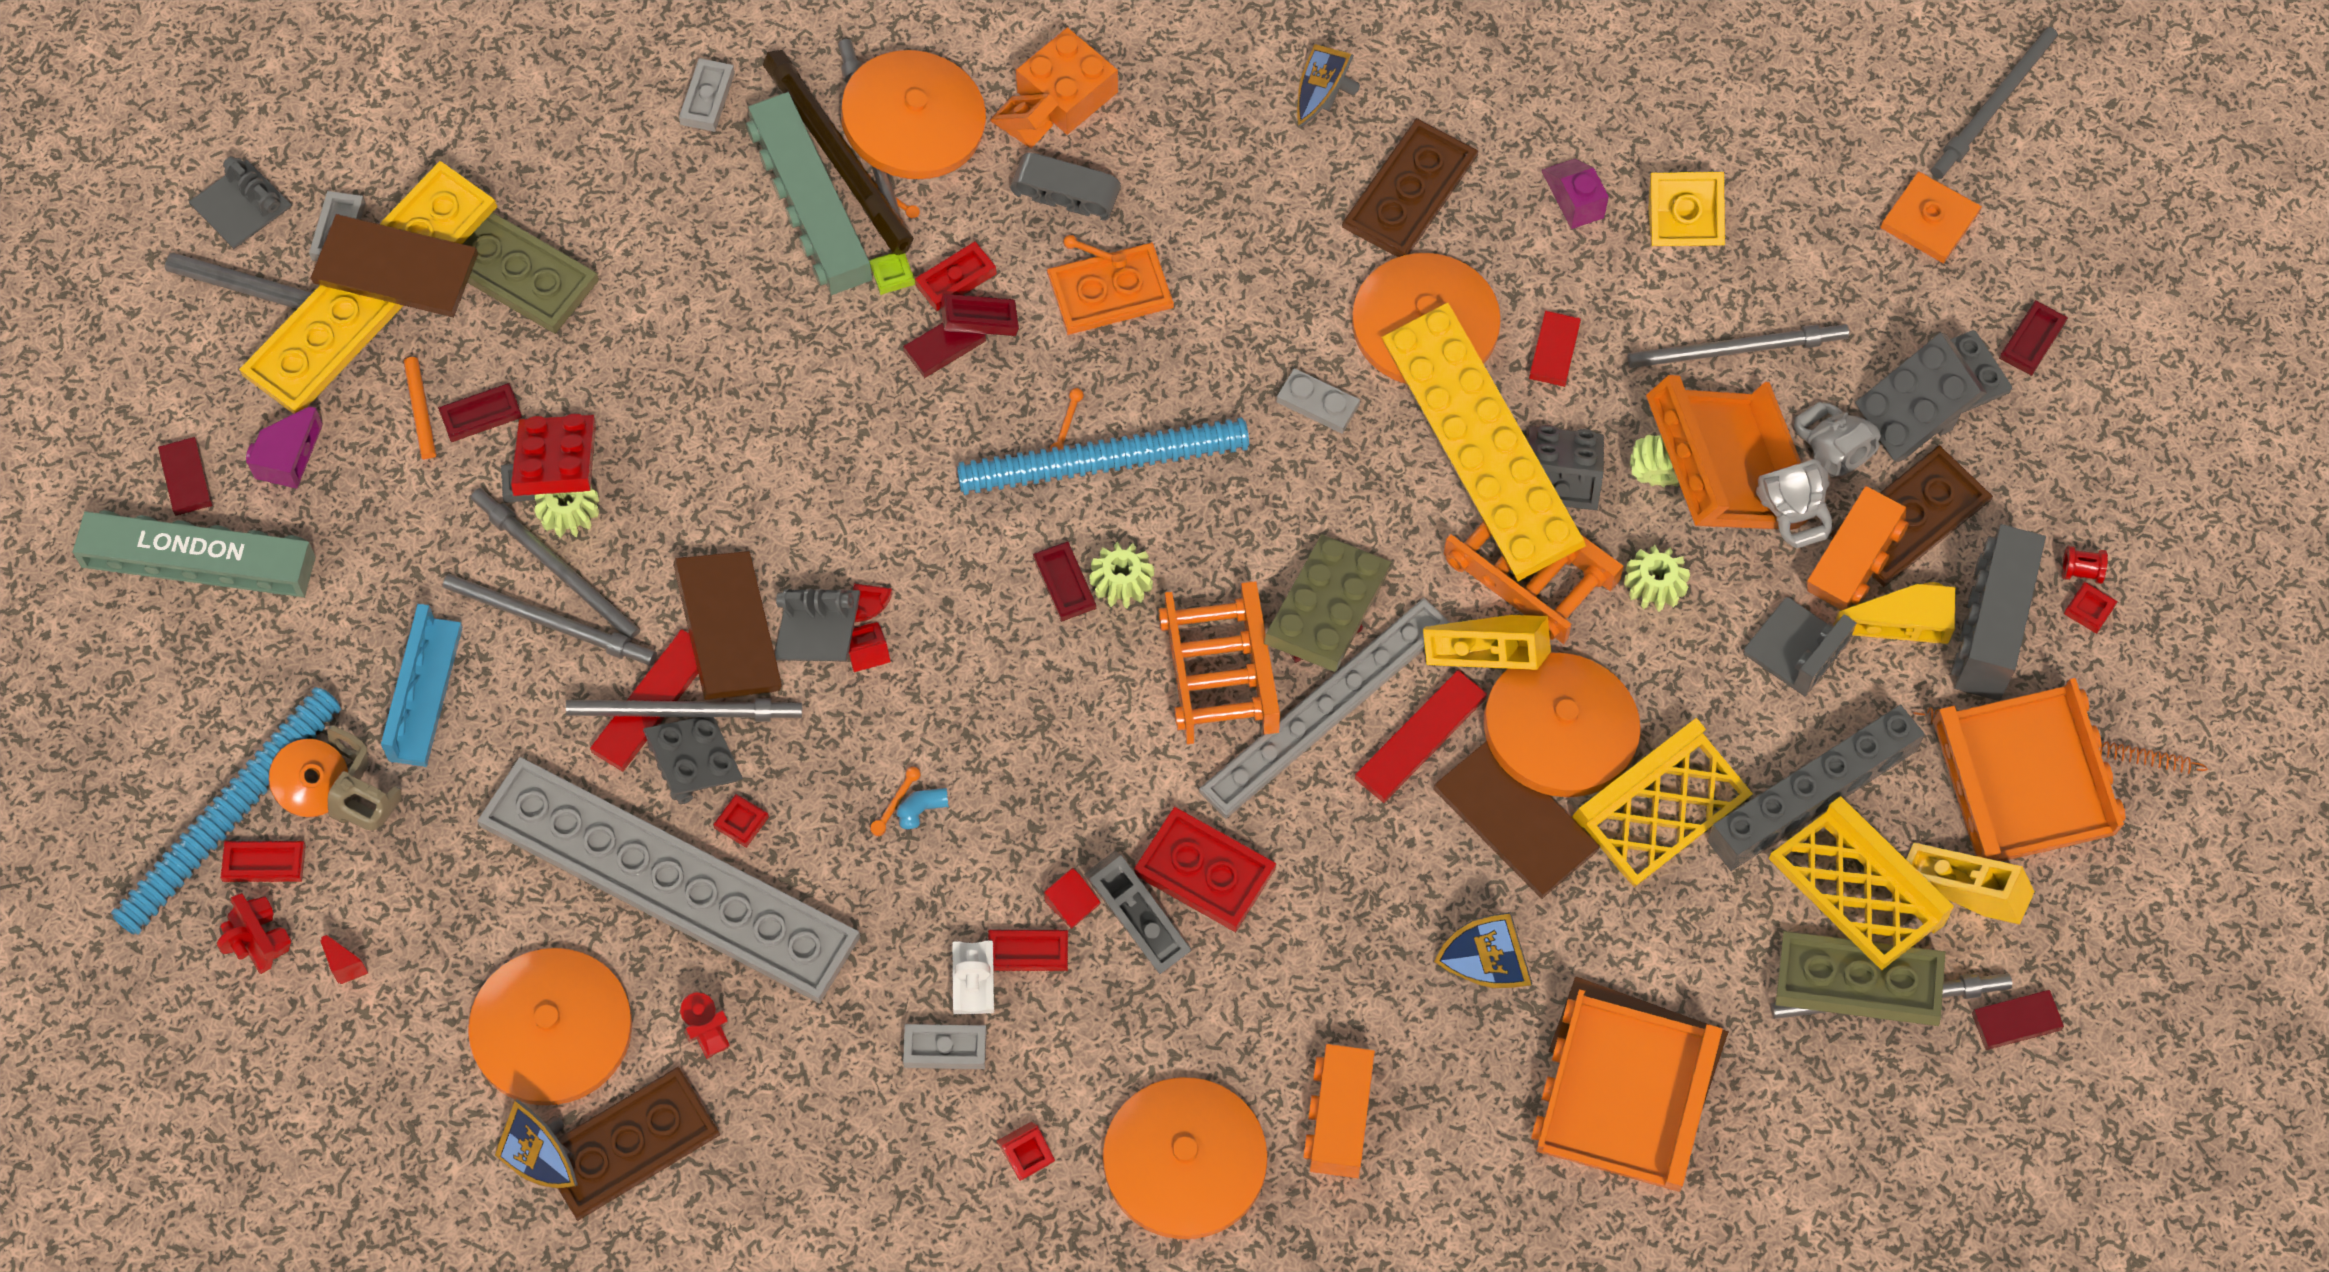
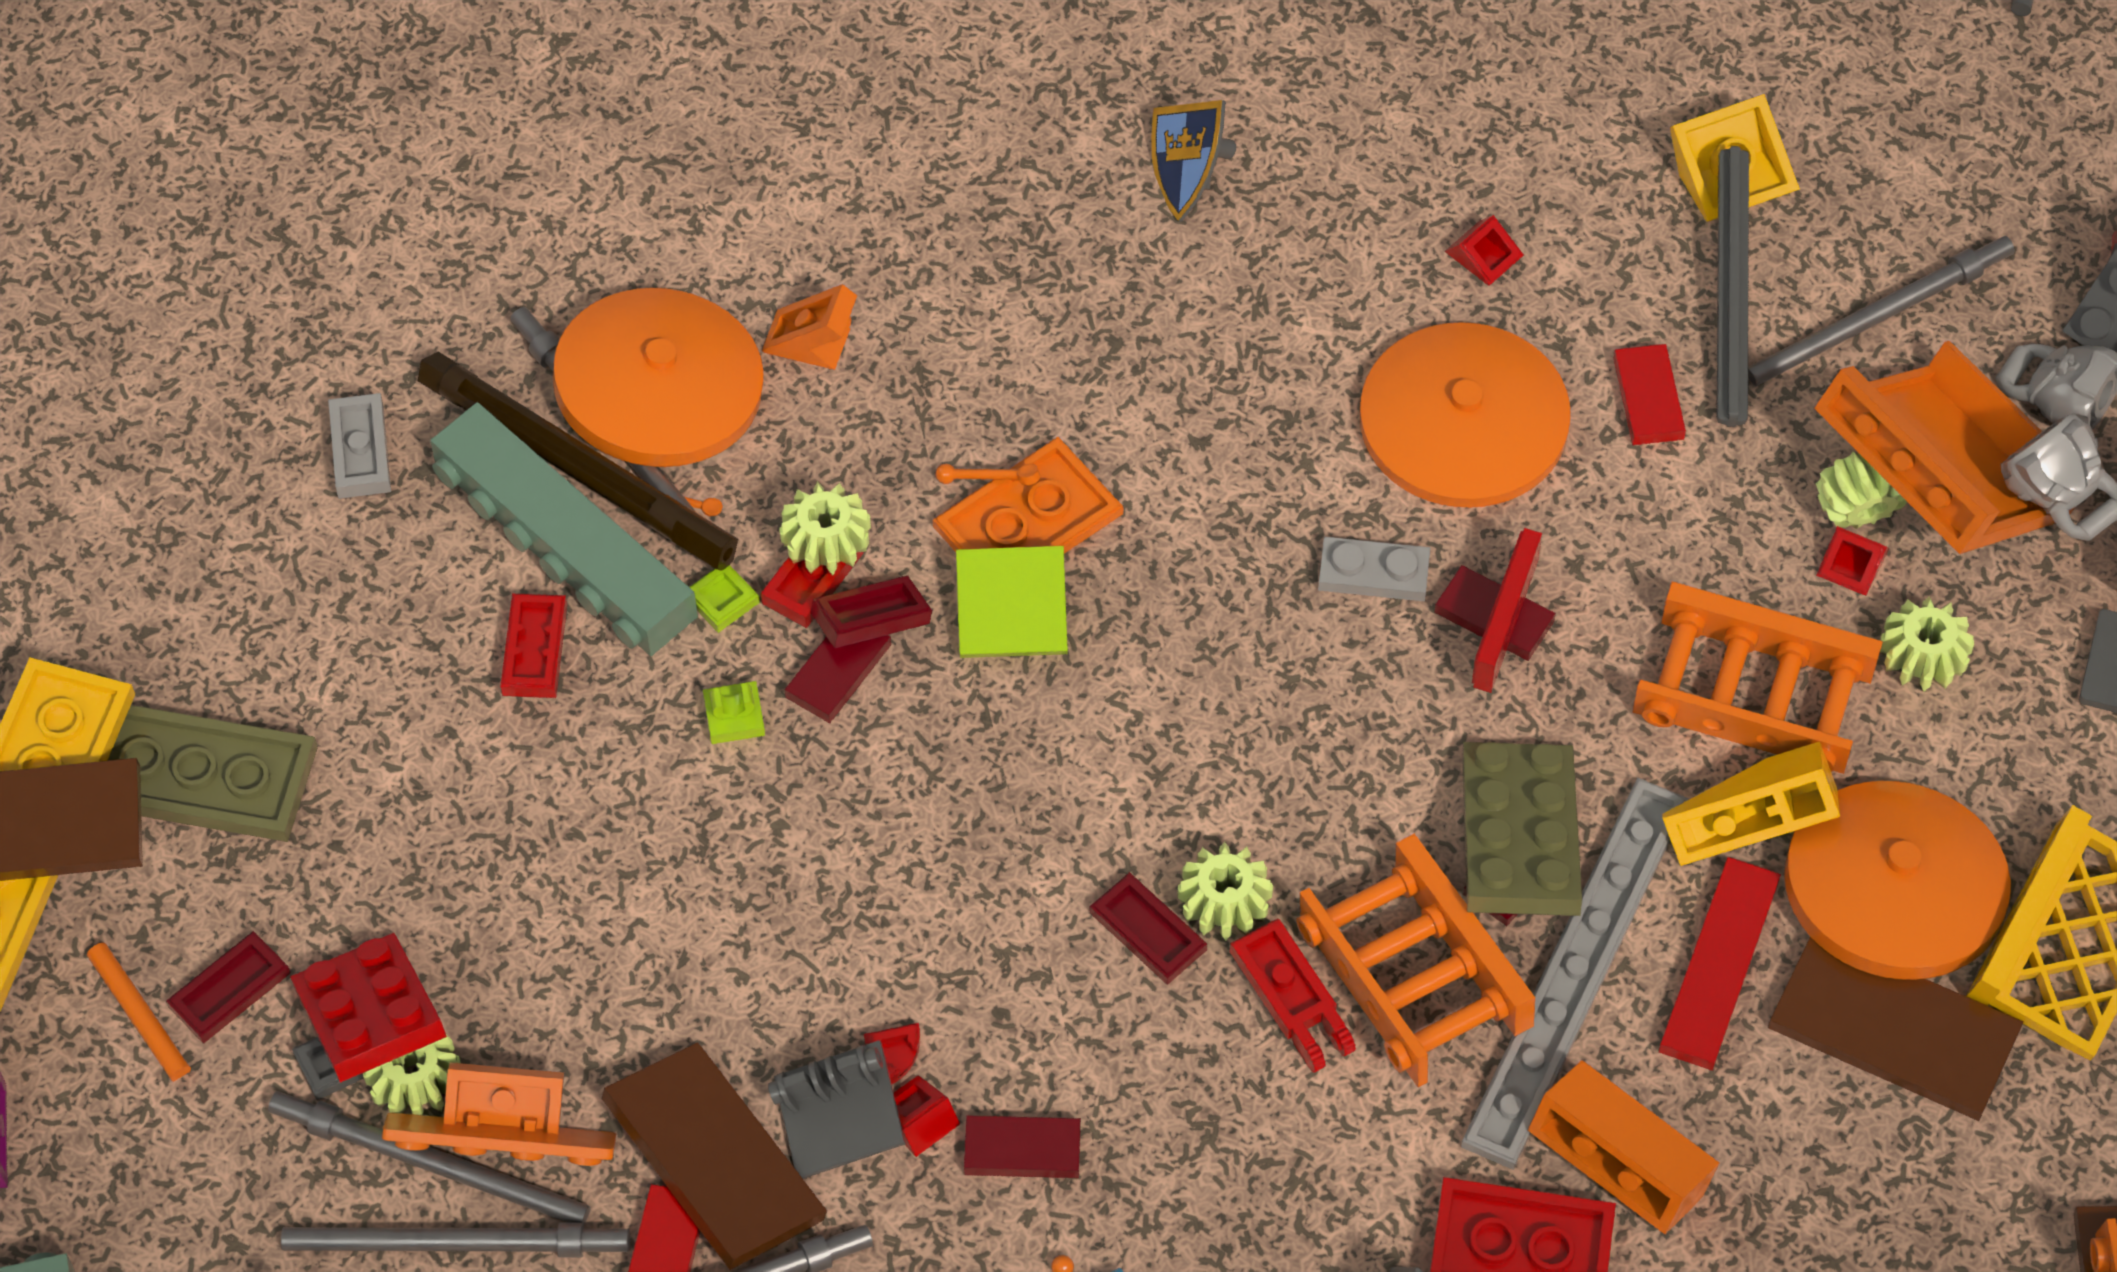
camera: 20 degrees left, 5 degrees down
(607, 551) = (501, 1112): none -> orange bracket
(759, 262) = (534, 645): none -> red plate
(866, 349) = (734, 712): none -> lime tile
(922, 690) = (1022, 1146): none -> dark red tile
(970, 250) = (825, 528): none -> yellowish green gear
(1066, 184) = (908, 400): dark grey beam -> none
(1071, 340) = (1011, 601): none -> lime tile
(1073, 76) = (850, 248): orange brick -> none
(1076, 396) = (1055, 753): orange hinge -> none
(1103, 456) = (1124, 741): dark azure piece -> none
(1135, 652) = (1291, 990): none -> red hinge
(1298, 829) = (1623, 1146): none -> orange brick
(1383, 457) = (1470, 602): none -> dark red tile
(1386, 457) = (1506, 610): none -> red tile
(1410, 189) = (1363, 254): reddish brown tile -> none
(1483, 442) = (1628, 544): yellow plate -> none
(1486, 953) = (1951, 1219): shield -> none
(1492, 215) = (1486, 250): none -> red slope
(1571, 462) = (1740, 541): dark grey bracket -> none
(1577, 191) = (1583, 182): magenta slope -> none
(1637, 506) = (1852, 561): none -> red slope
(1643, 295) = (1732, 287): none -> dark grey axle
(1931, 217) = (2040, 67): orange plate -> none

